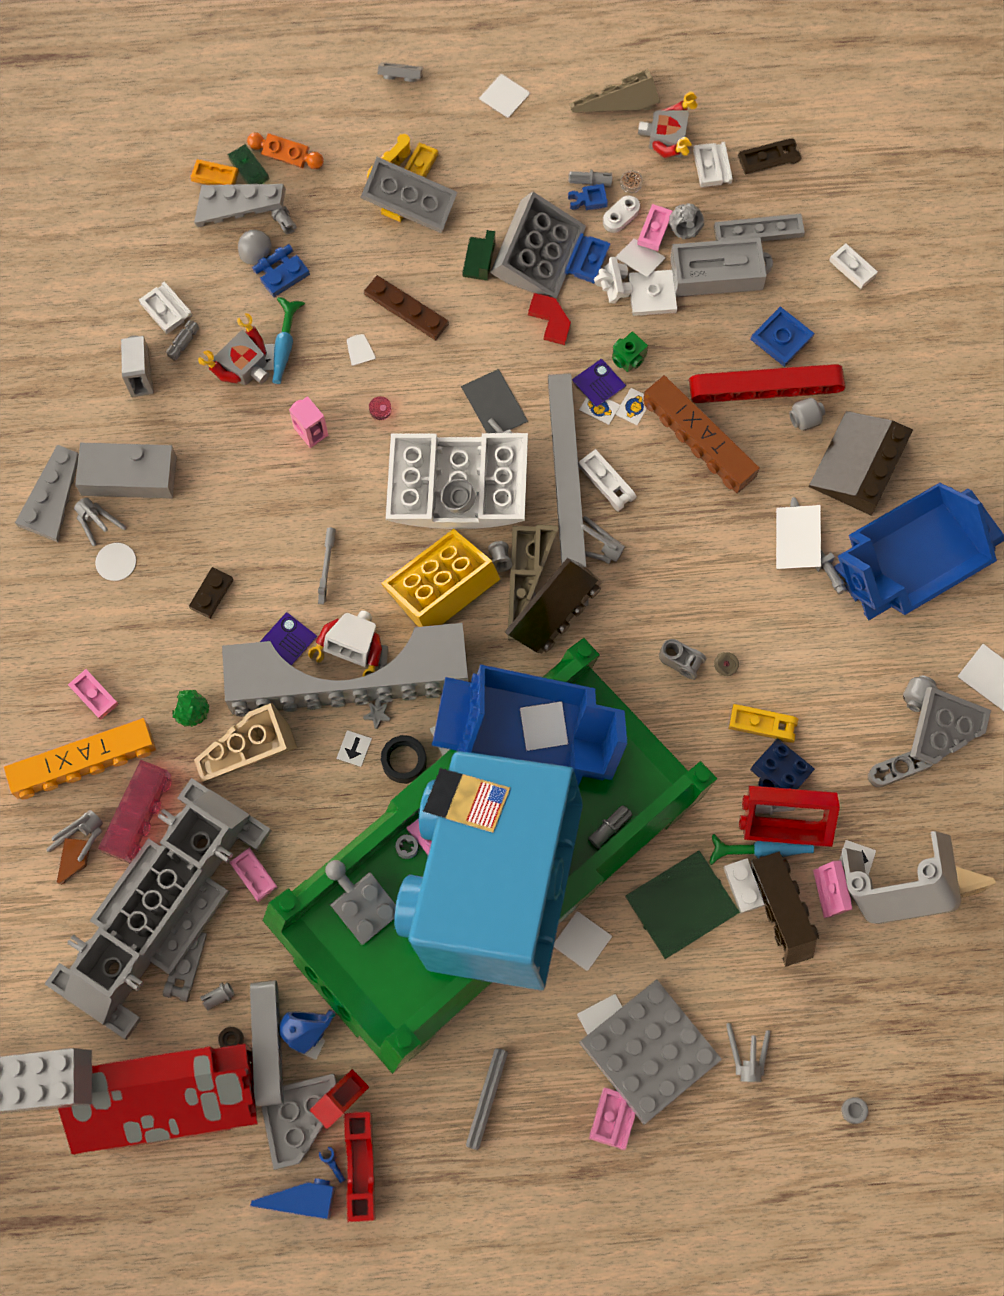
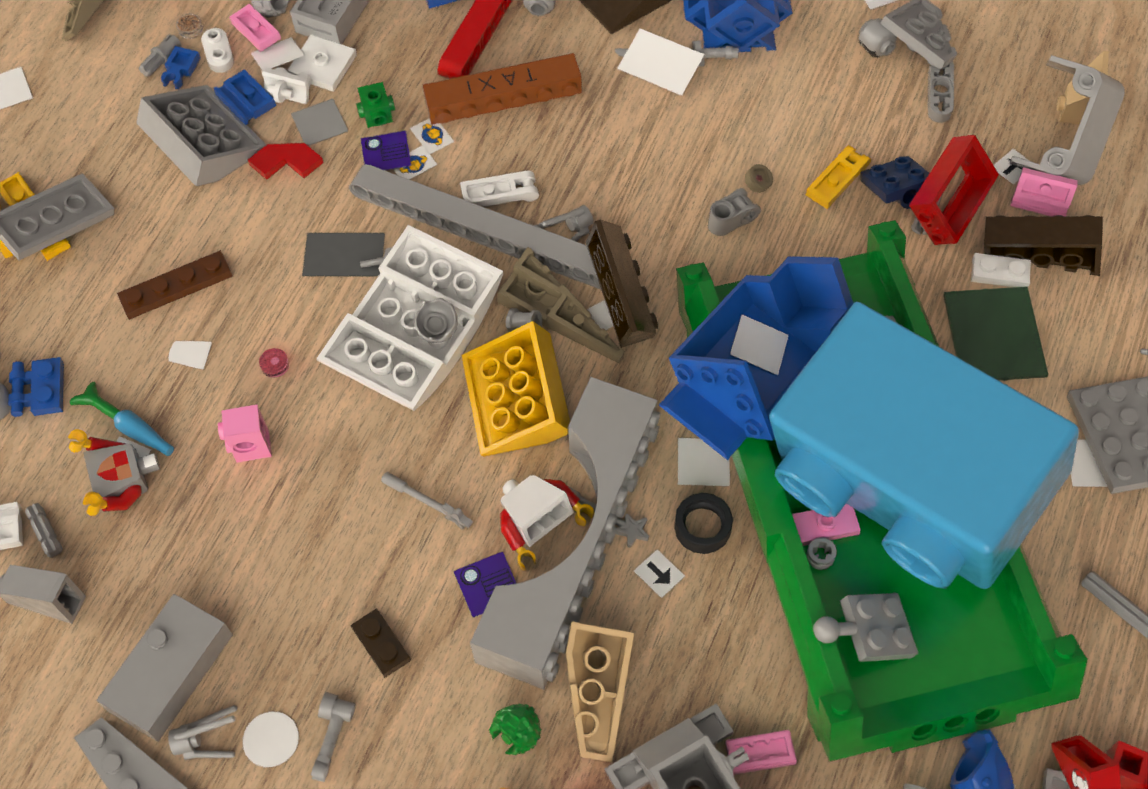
camera: 60 degrees left, 10 degrees down
(150, 591) = (337, 712): none -> light grey brick
(466, 799) = (838, 423): sticker -> none
(479, 256) = (170, 189): dark green panel -> none
(599, 322) = (319, 122): none -> light grey sticker
(759, 849) = (969, 239): piece -> none

